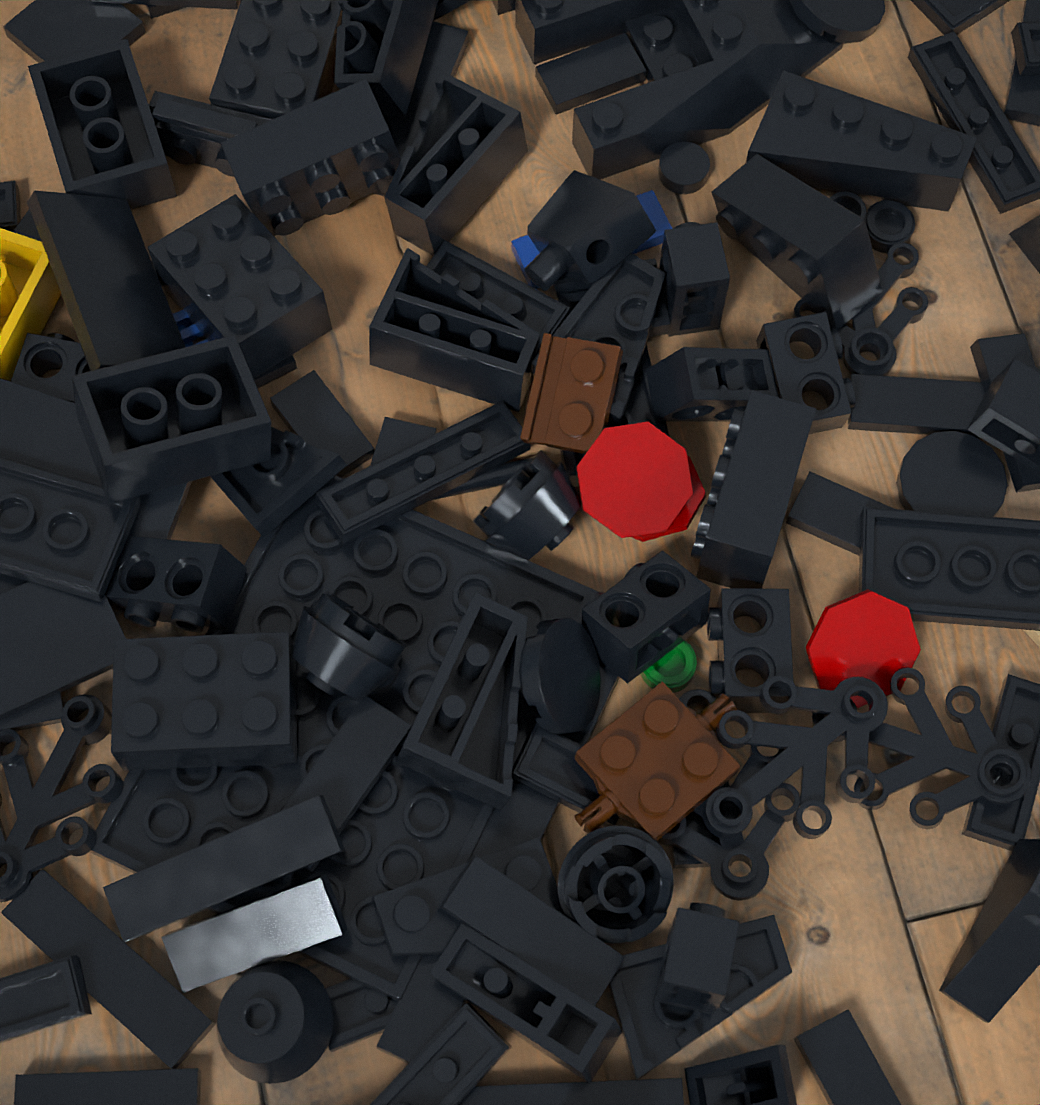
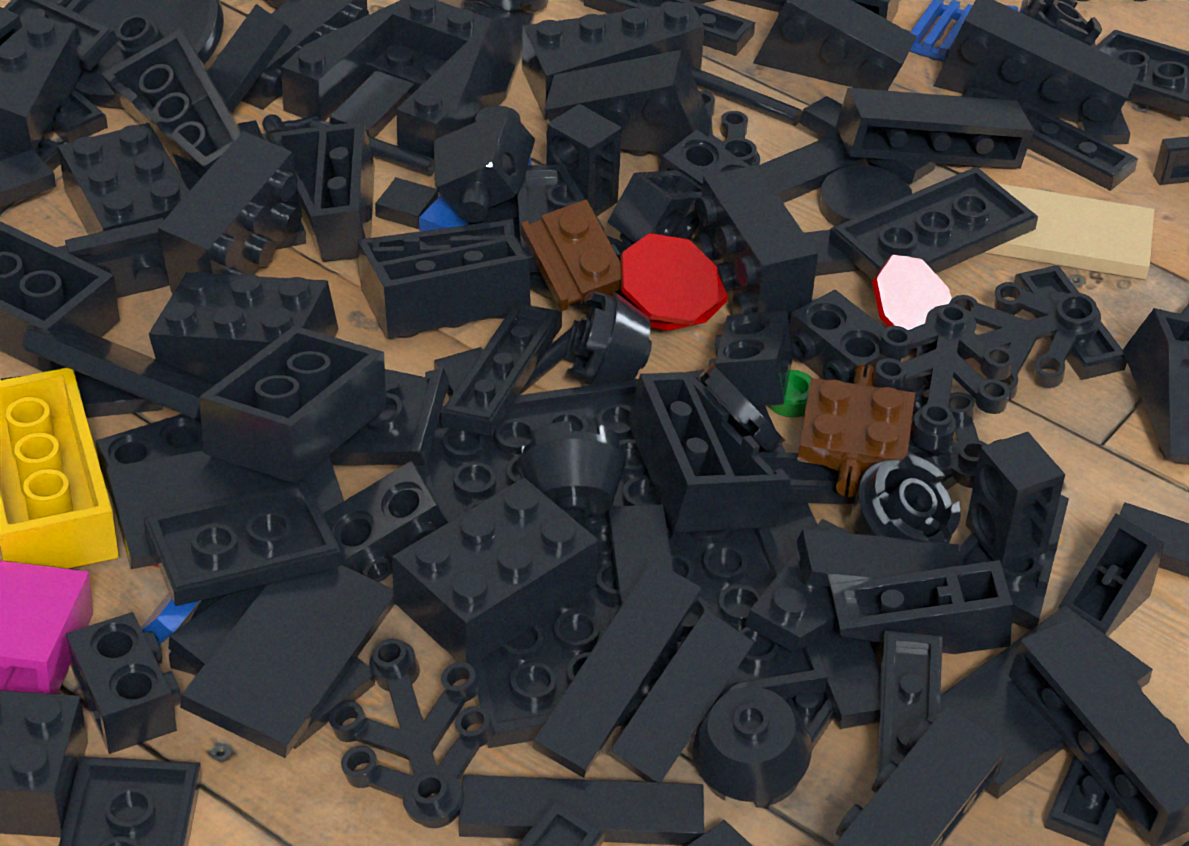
camera: 40 degrees left, 25 degrees down
(479, 50) = (273, 123): none -> black hand
(516, 208) = (405, 202): none -> black tile
(546, 118) = (393, 154): none -> black bar
(951, 271) = (746, 96): none -> black bar

